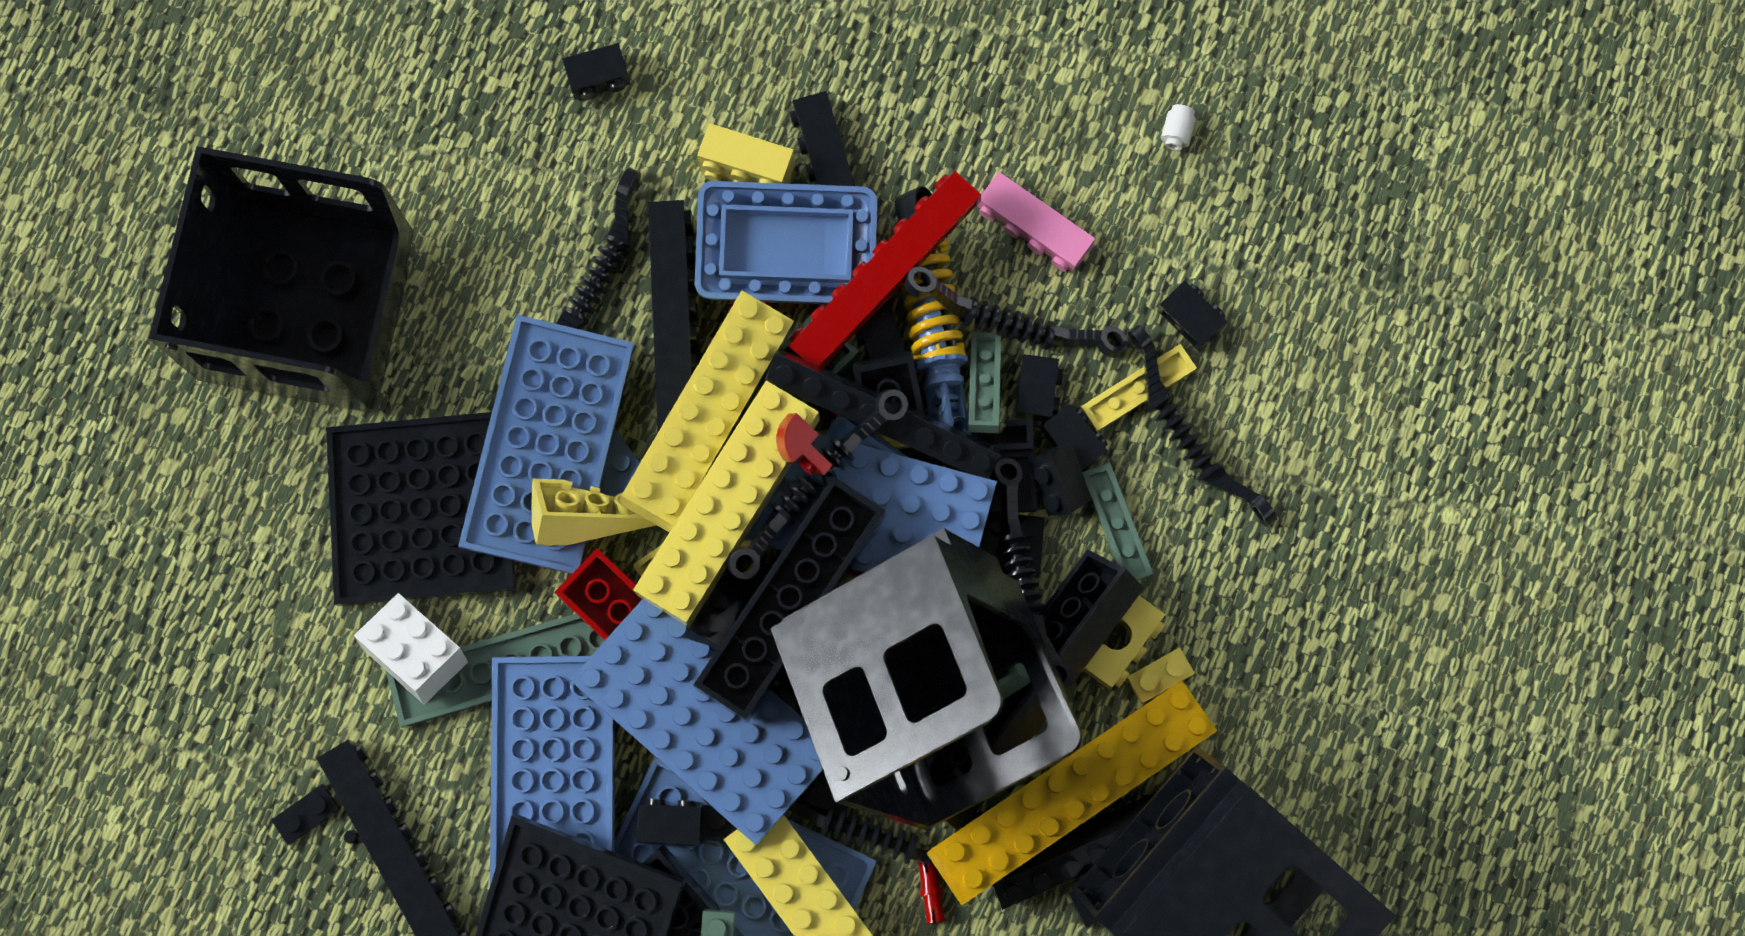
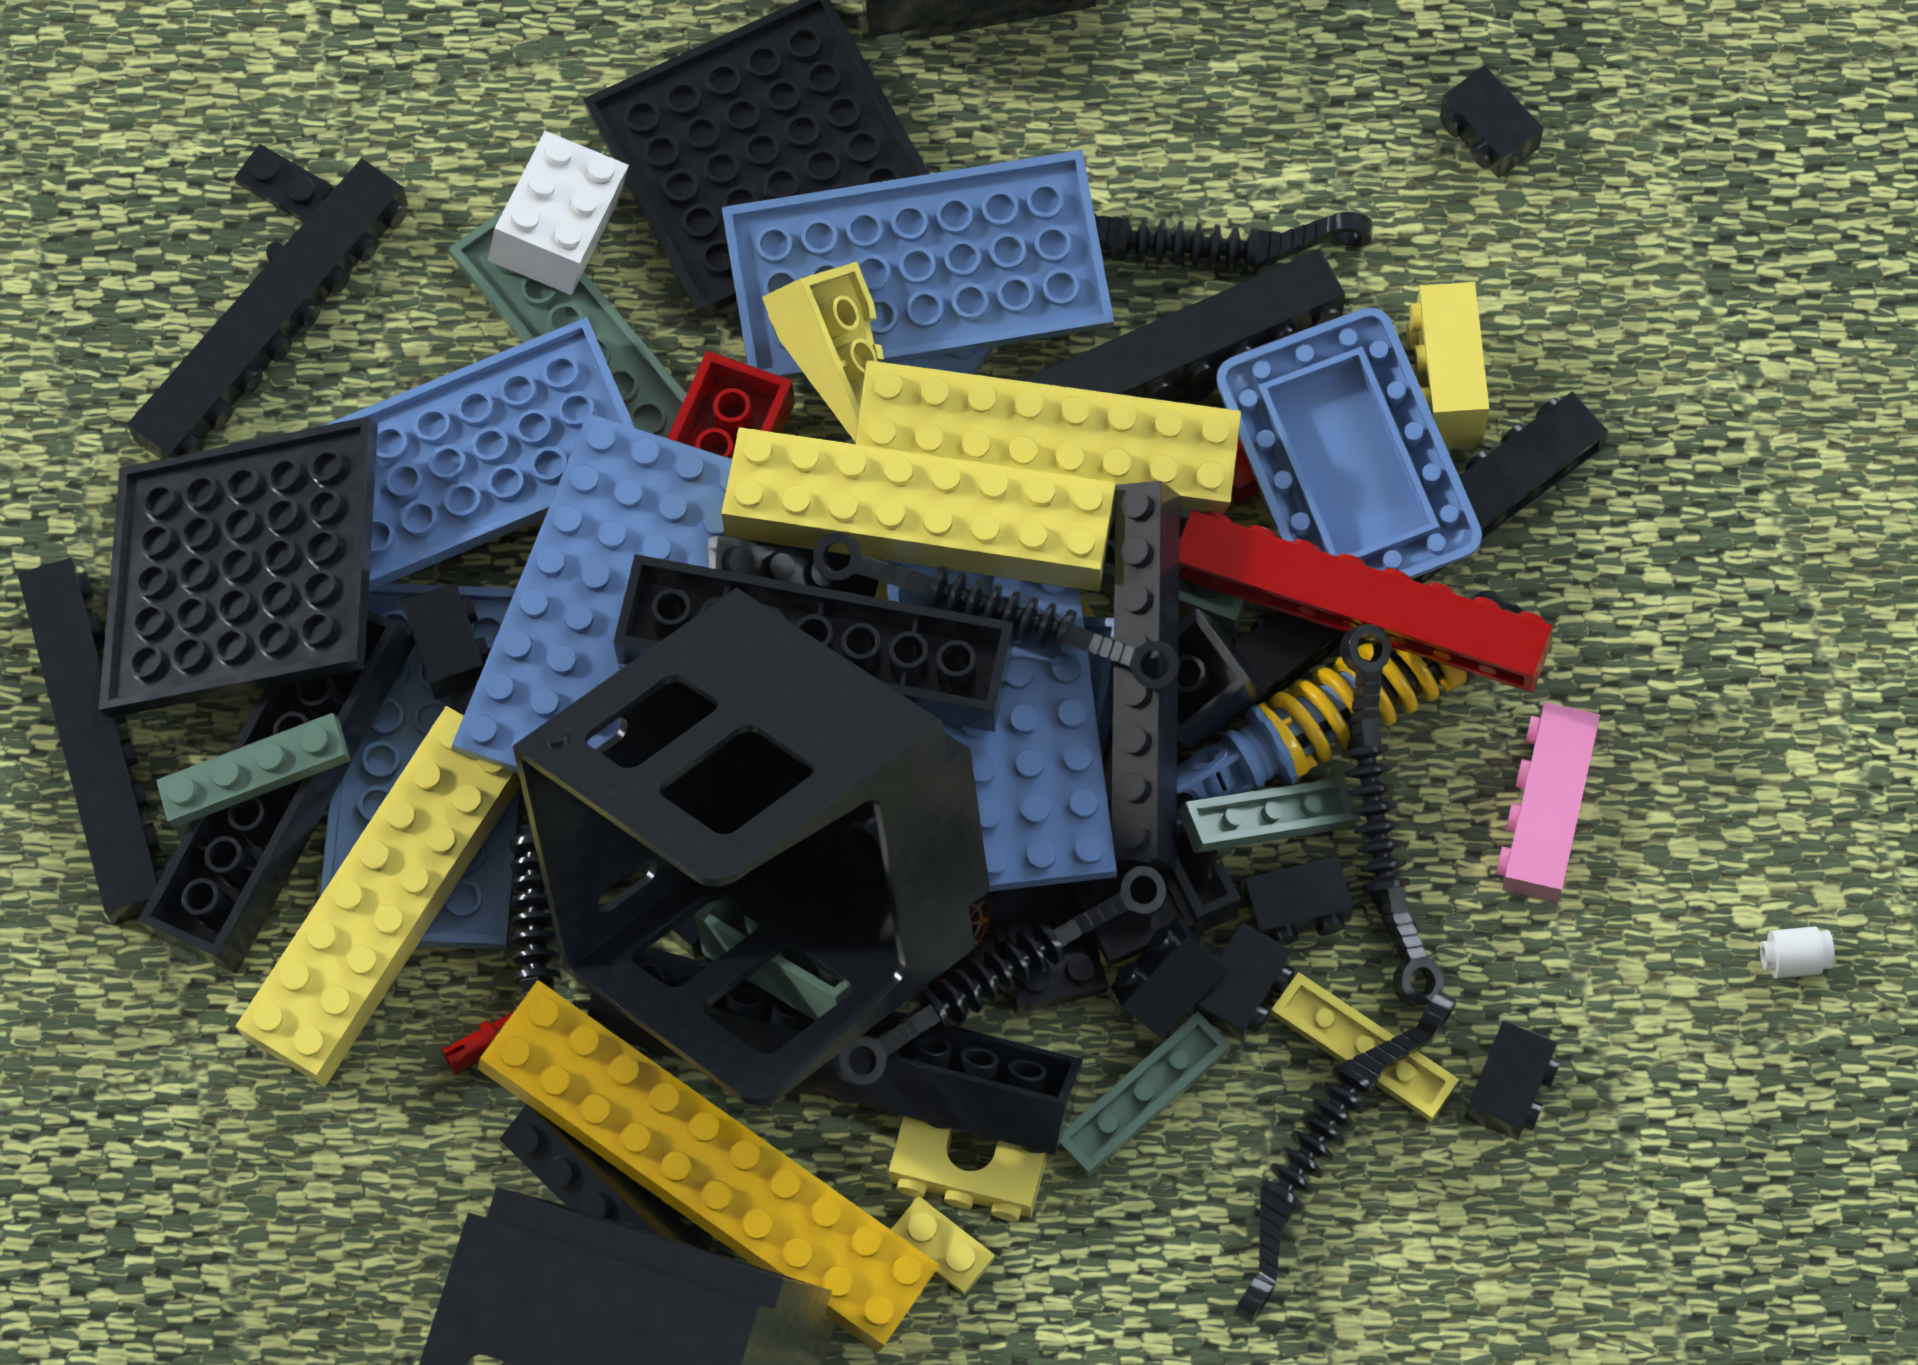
camera: 70 degrees right, 10 degrees down
(794, 442) = (1038, 544): red brick -> none

